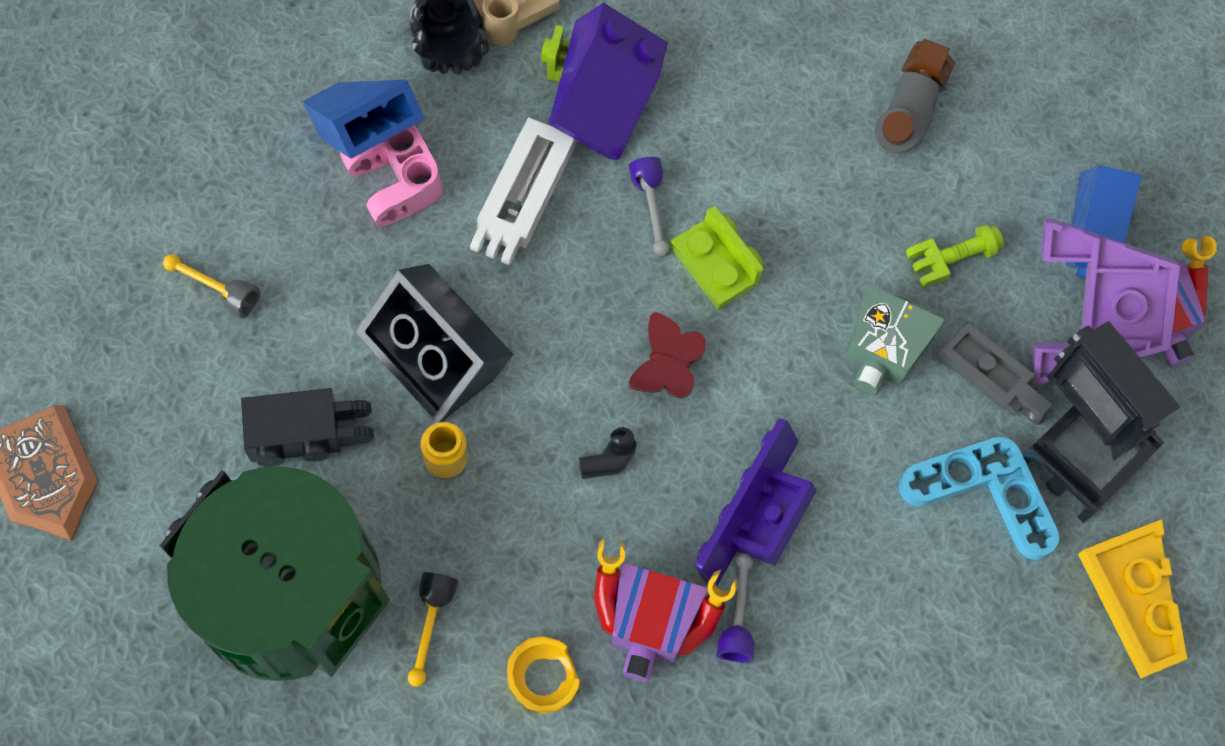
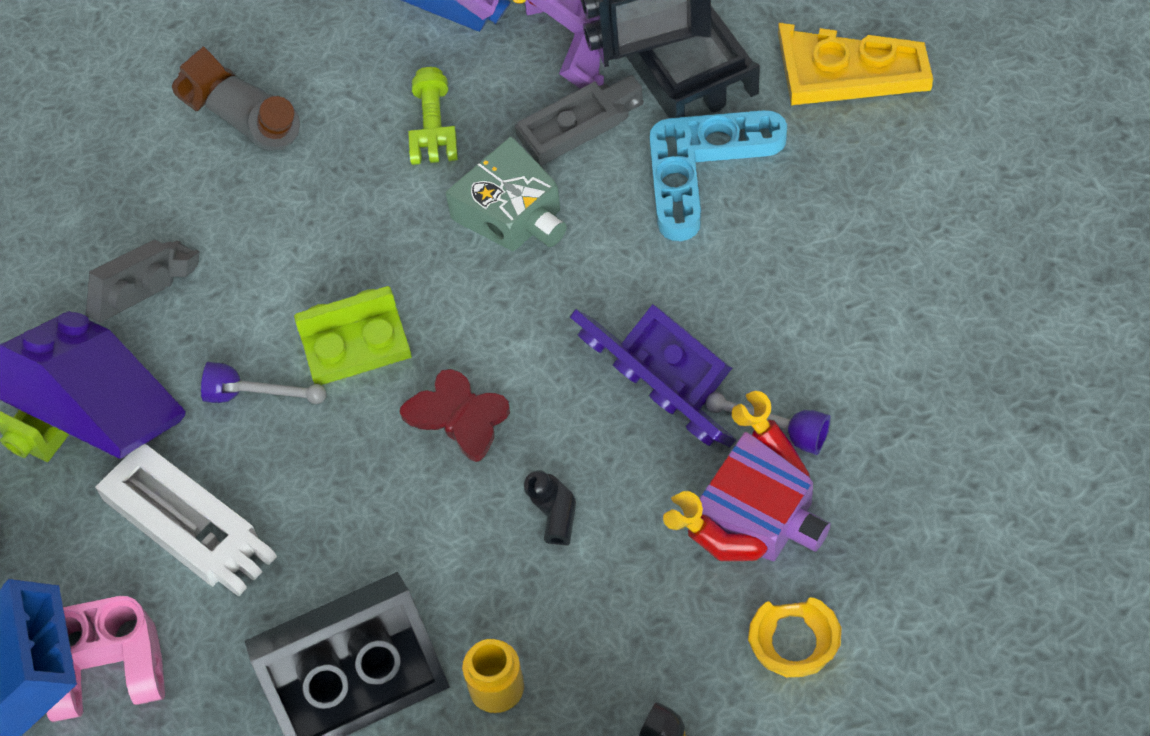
camera: 60 degrees left, 10 degrees down
(716, 80) = (136, 277): none -> dark grey hinge

